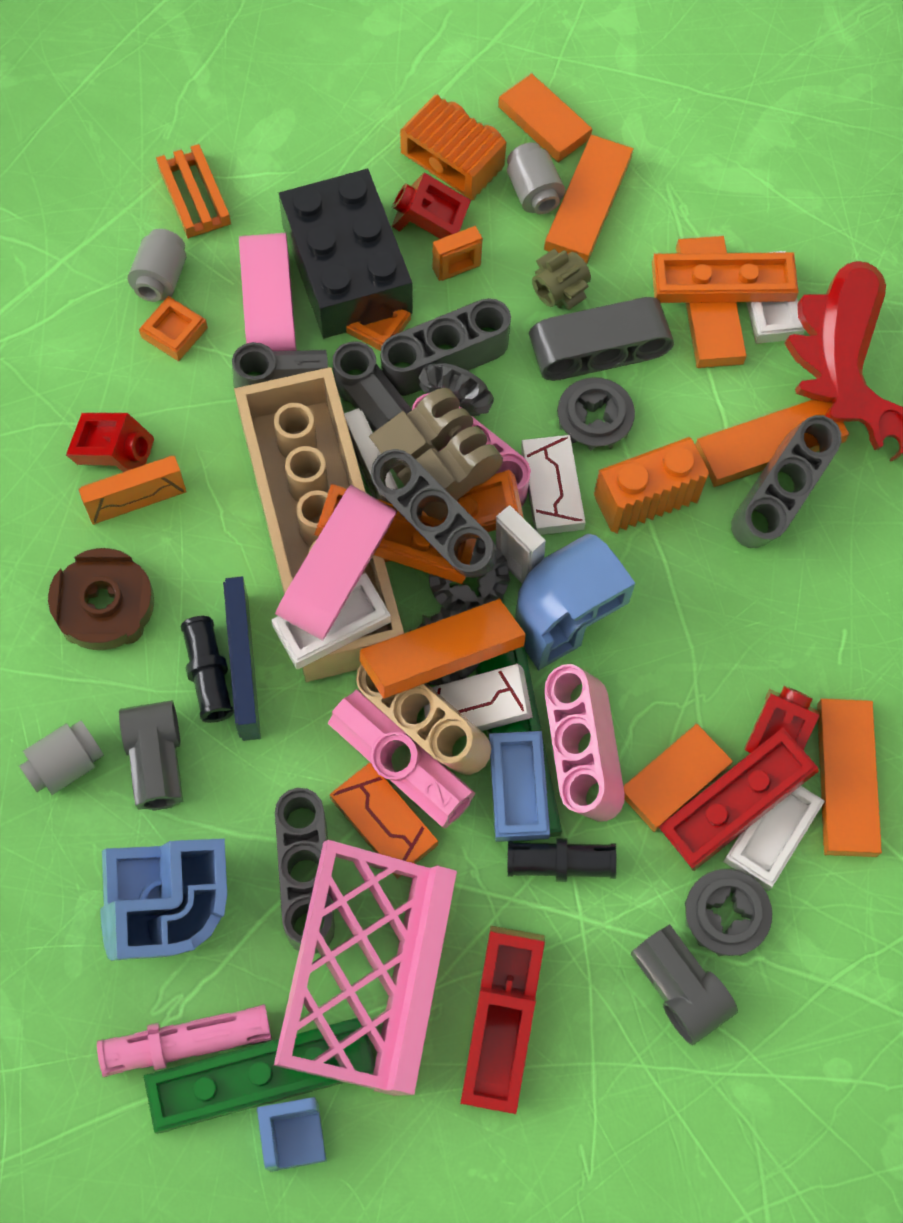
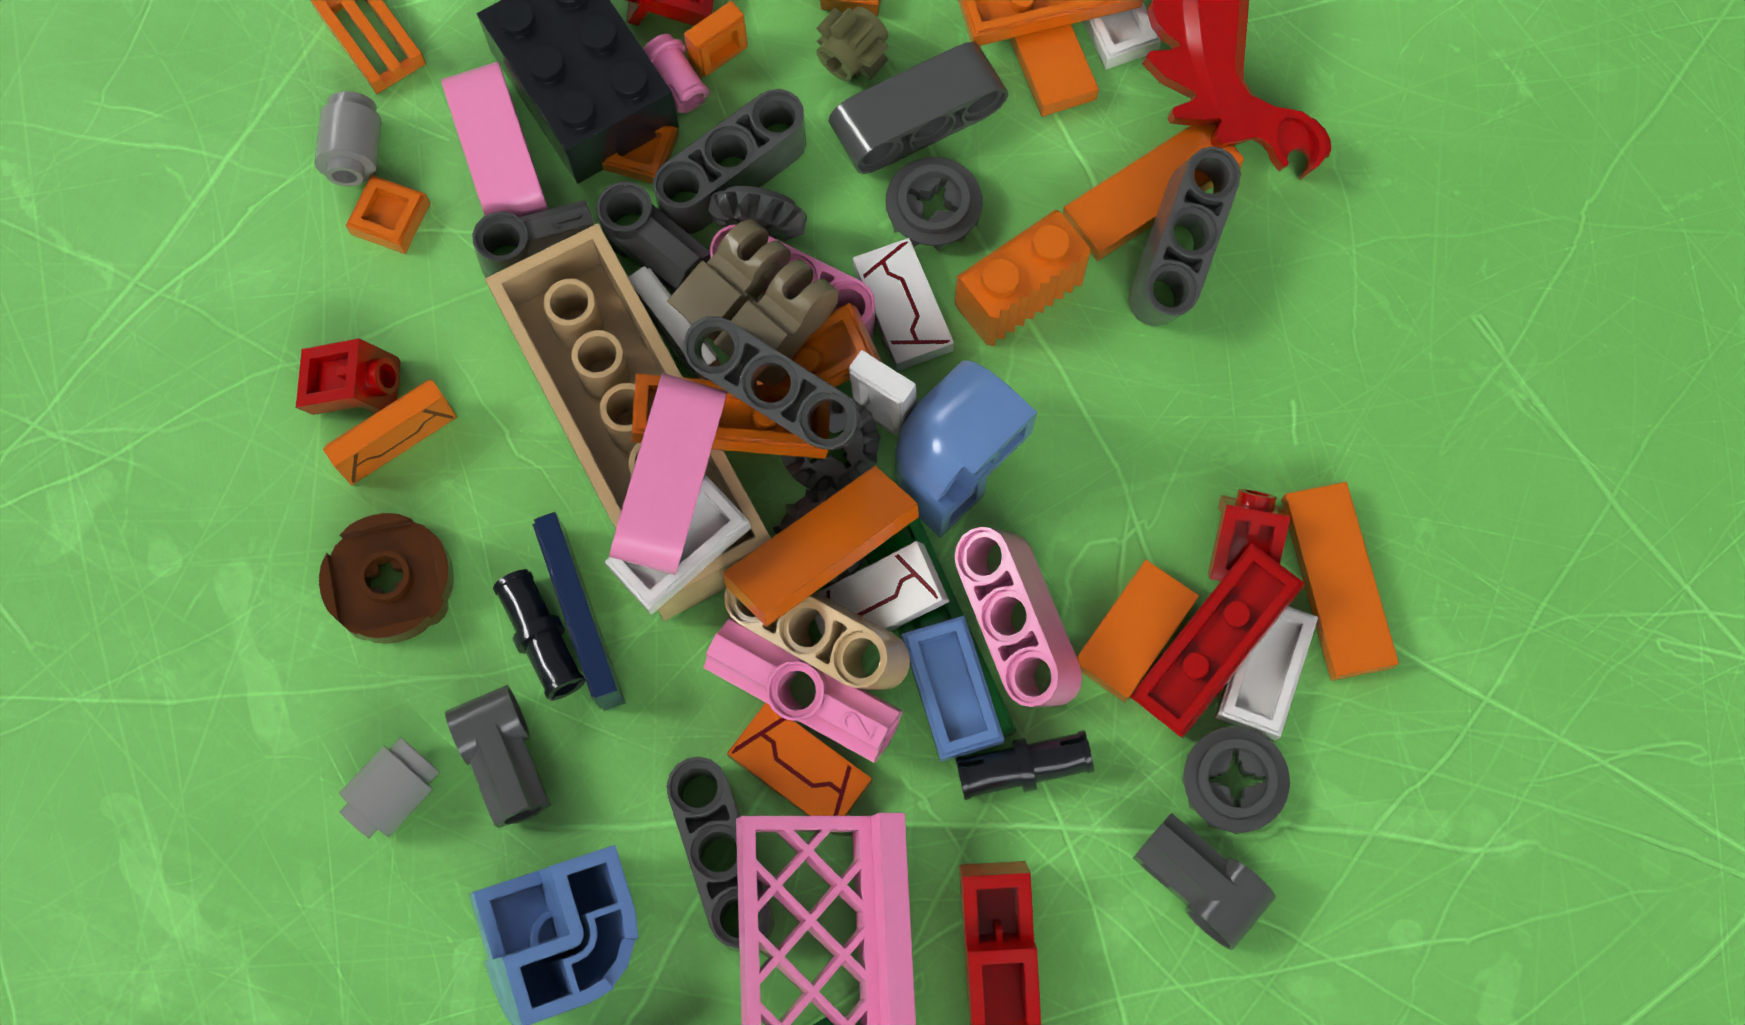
camera: 10 degrees left, 5 degrees up
(421, 272) = (677, 72): none -> bright pink pin

